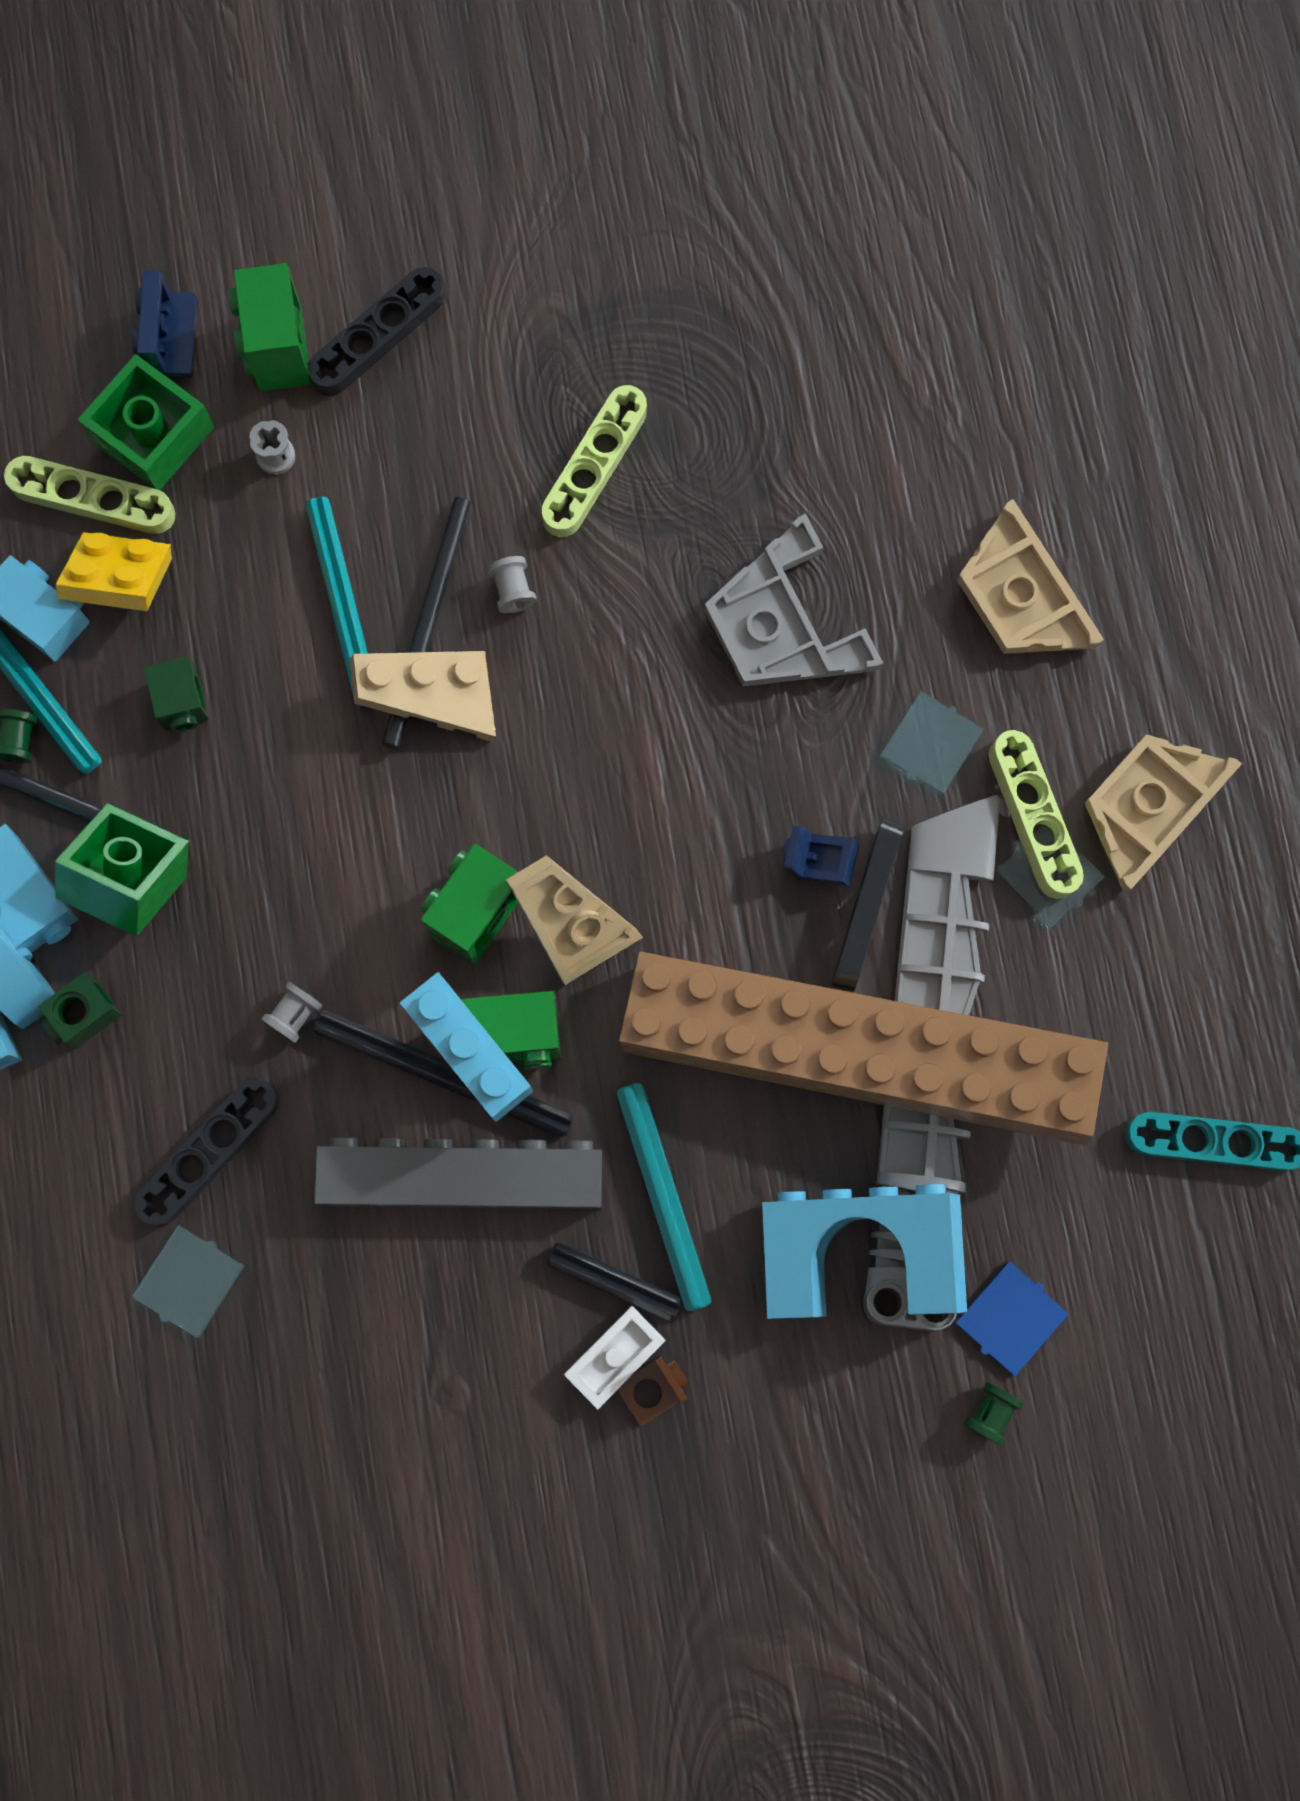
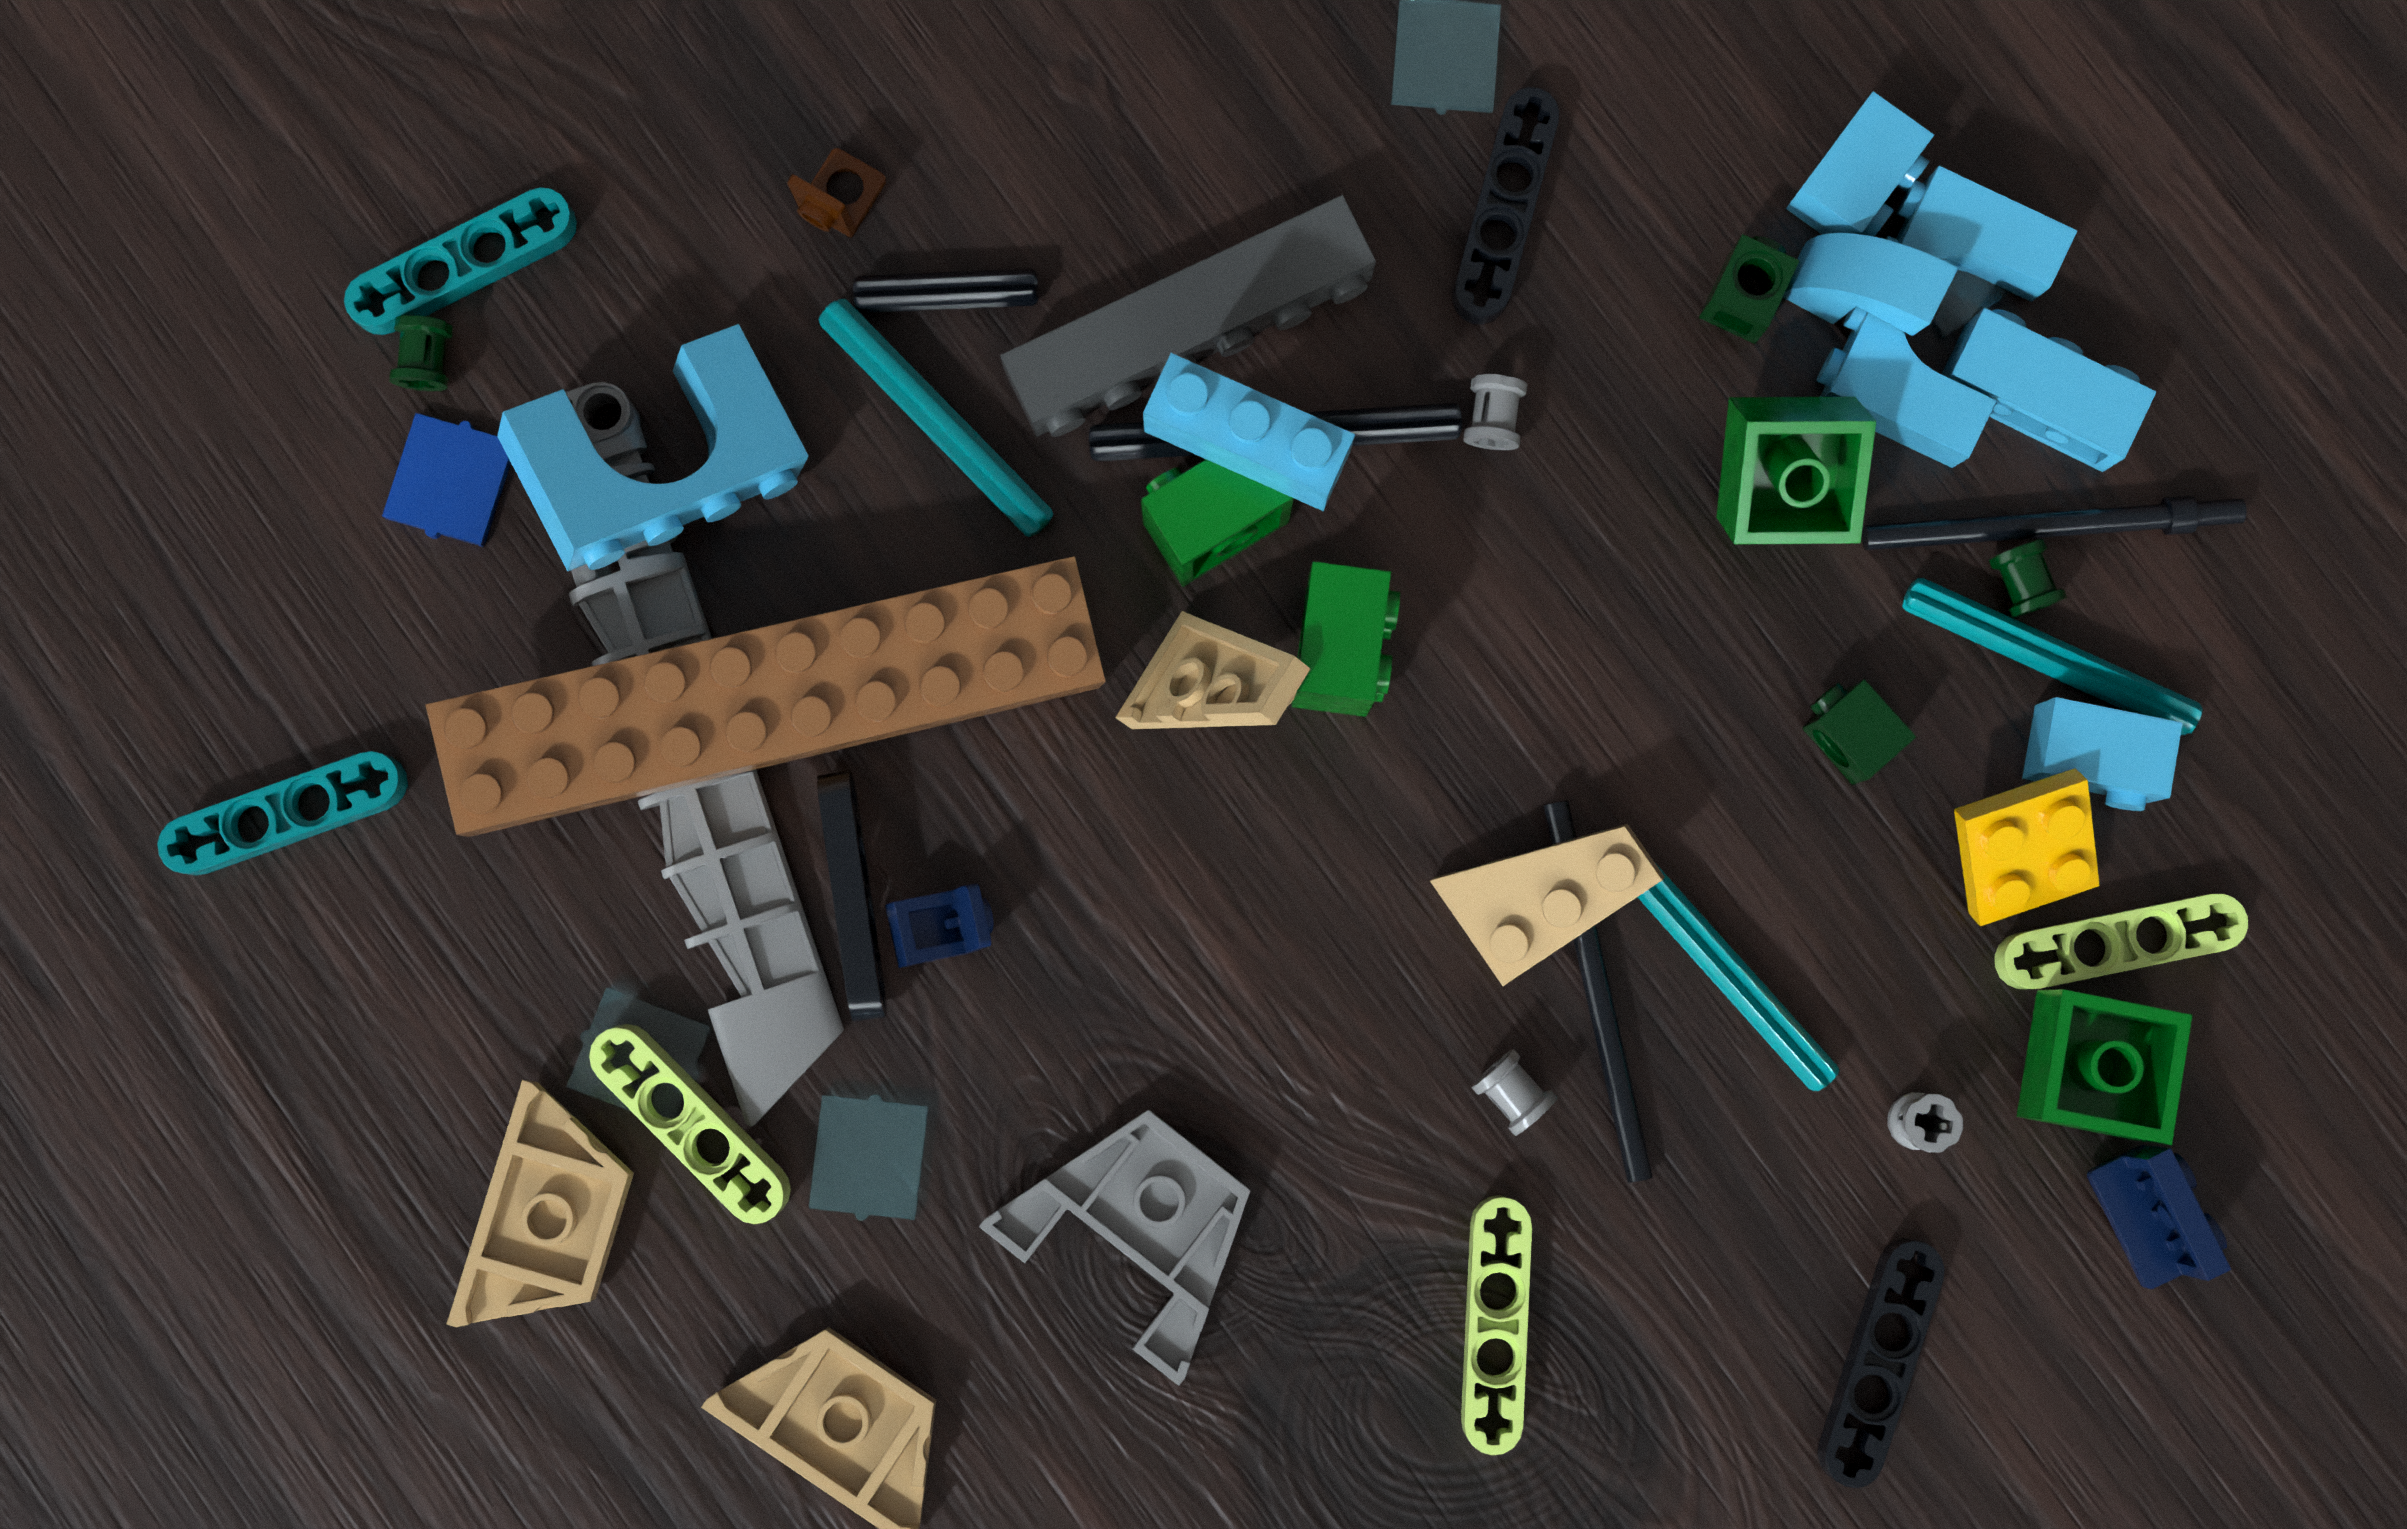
camera: 155 degrees right, 5 degrees up
(270, 327) = (2020, 1282): green brick -> none
(614, 1357) = (901, 204): white plate -> none
(937, 1464) = (456, 250): none -> teal beam

